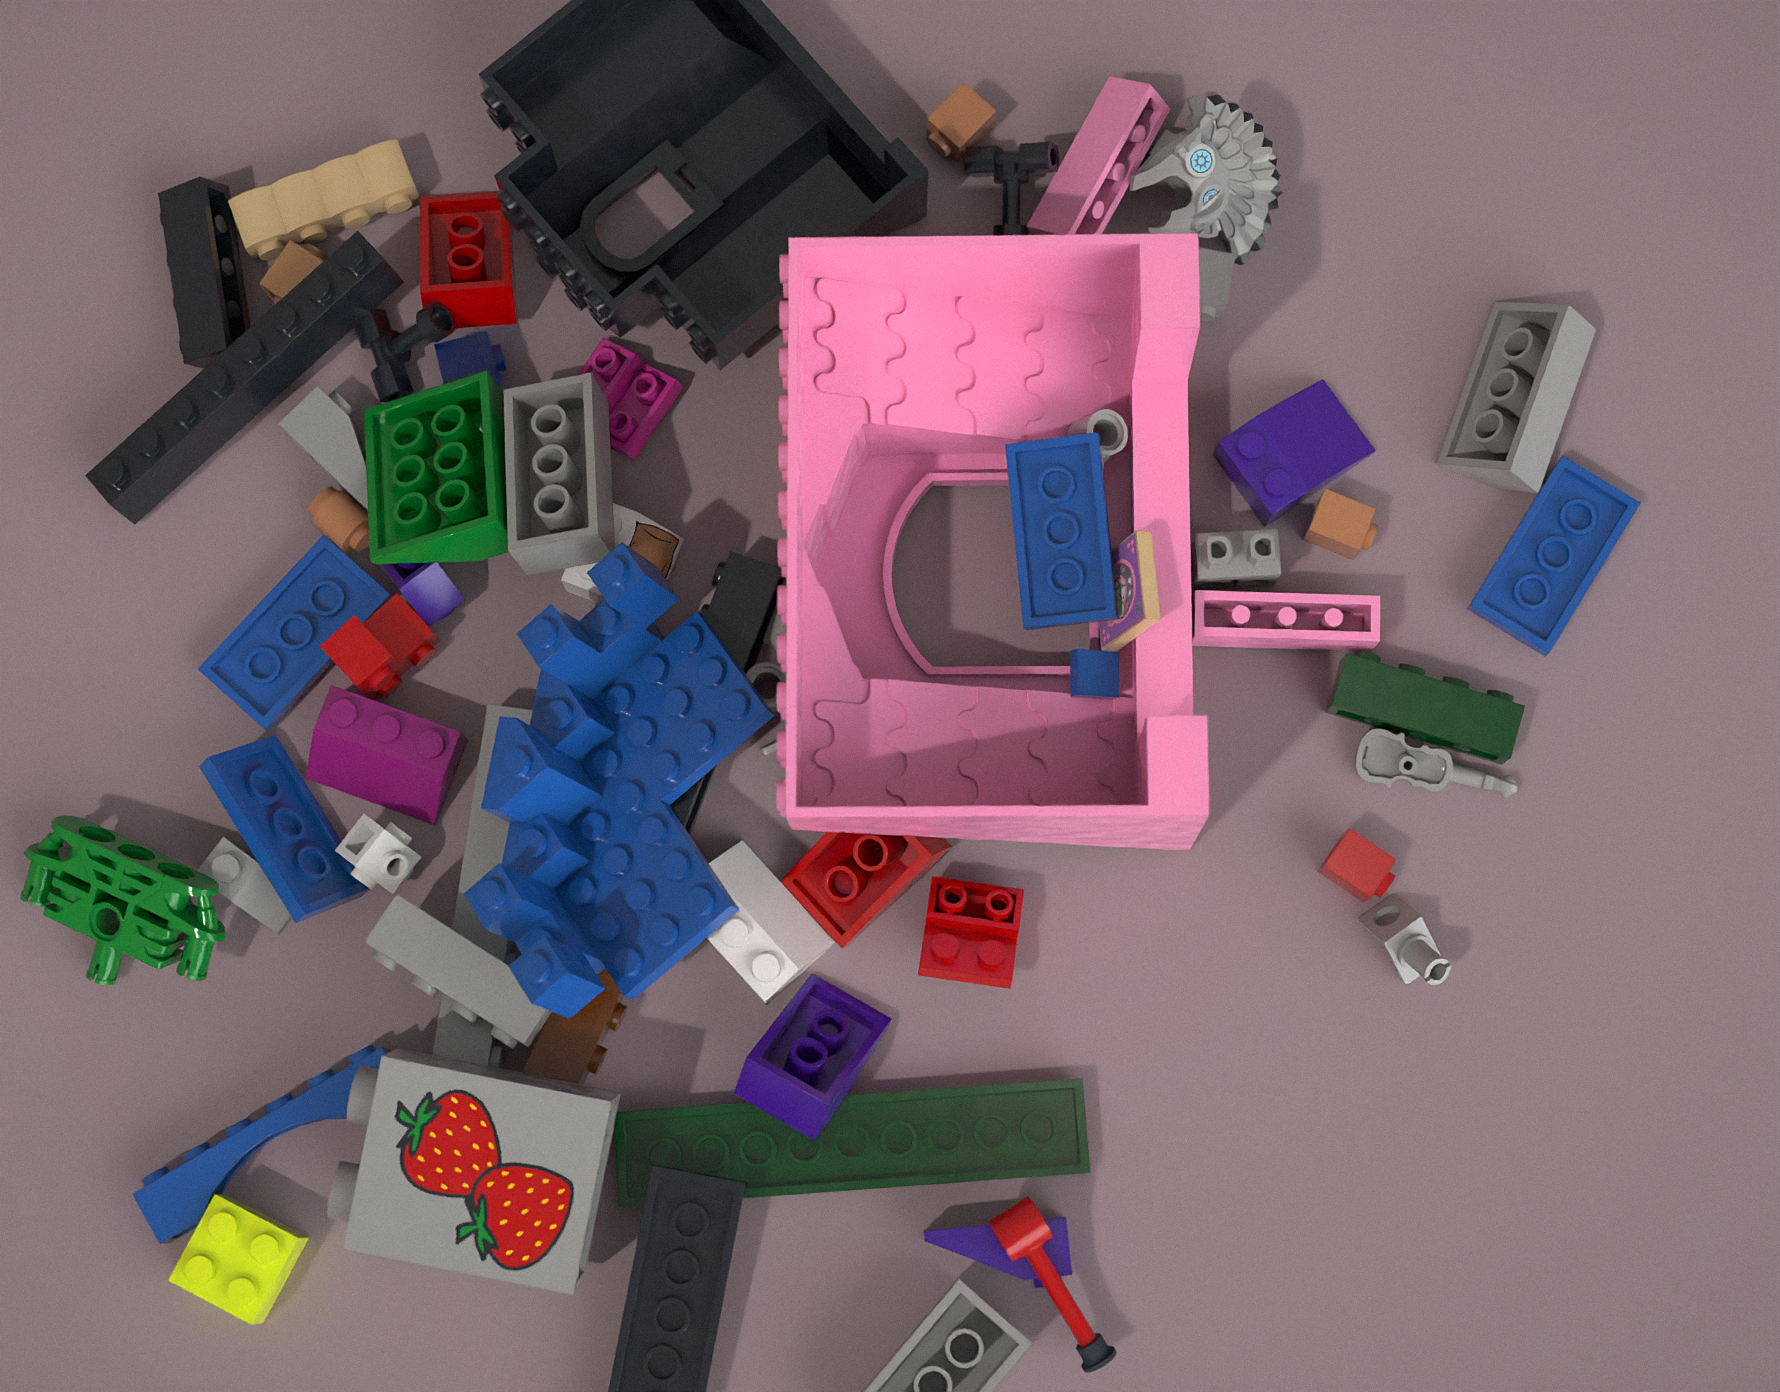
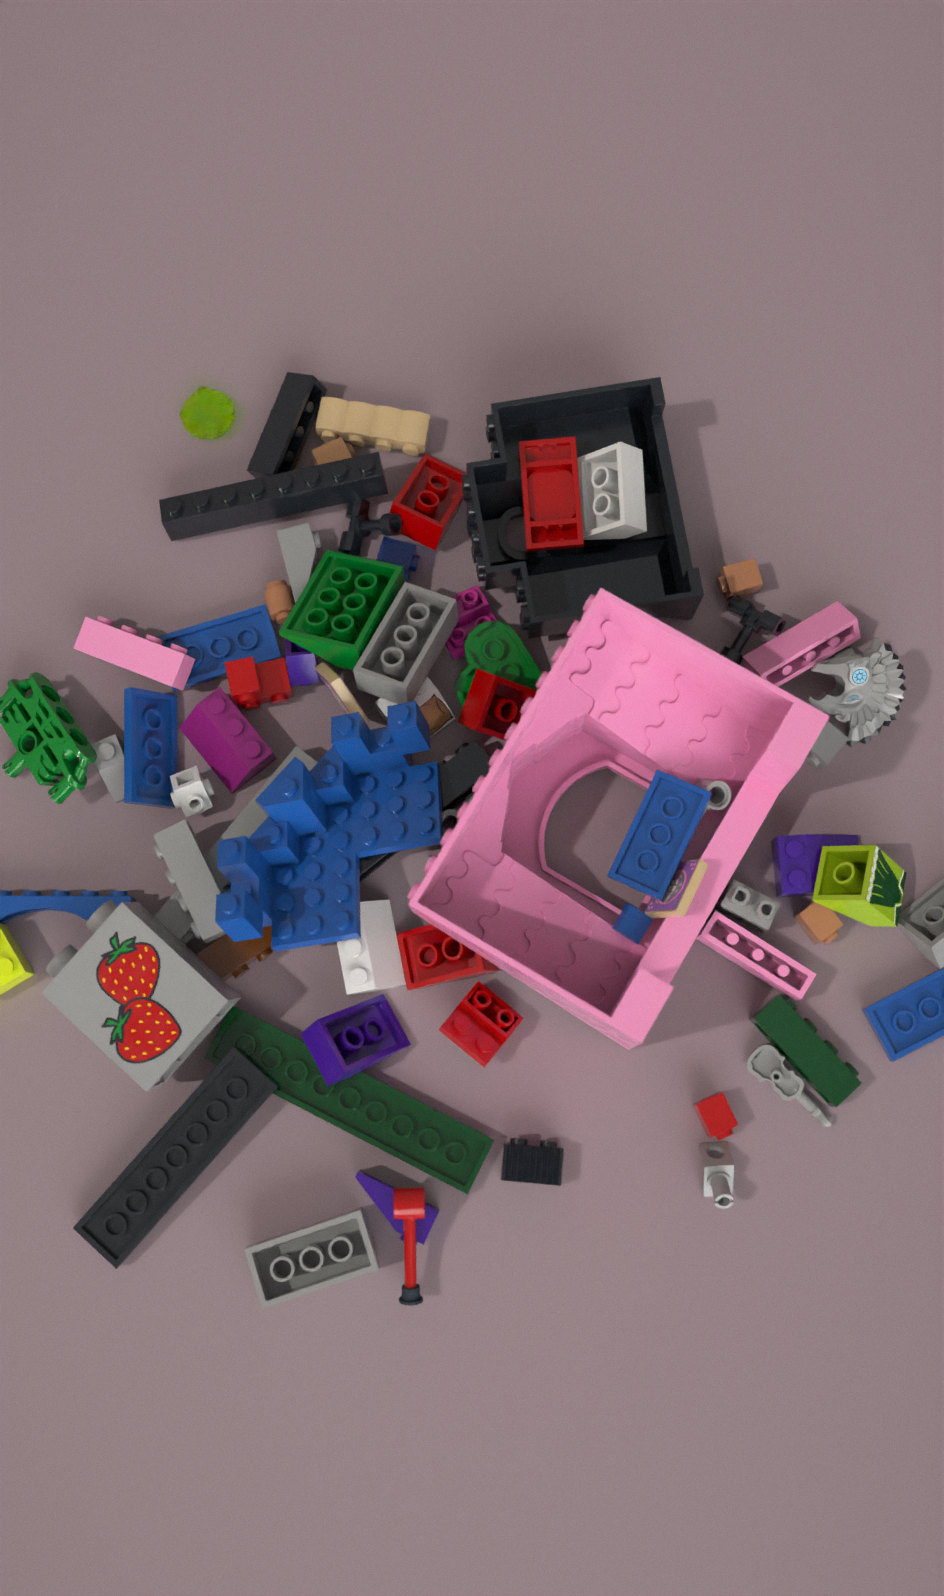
camera: 30 degrees right, 0 degrees up
(78, 316) = (207, 414): none -> clear neon green dish
(180, 709) = (135, 653): none -> bright pink brick
(502, 592) = (339, 690): none -> tan tile
(634, 152) = (551, 494): none -> red slope
(703, 440) = (499, 652): none -> green plate
(716, 103) = (612, 492): none -> white slope
(731, 486) = (493, 704): none -> red slope
(1151, 1078) = (532, 1163): none -> black brick
(1366, 441) = (860, 884): none -> lime slope

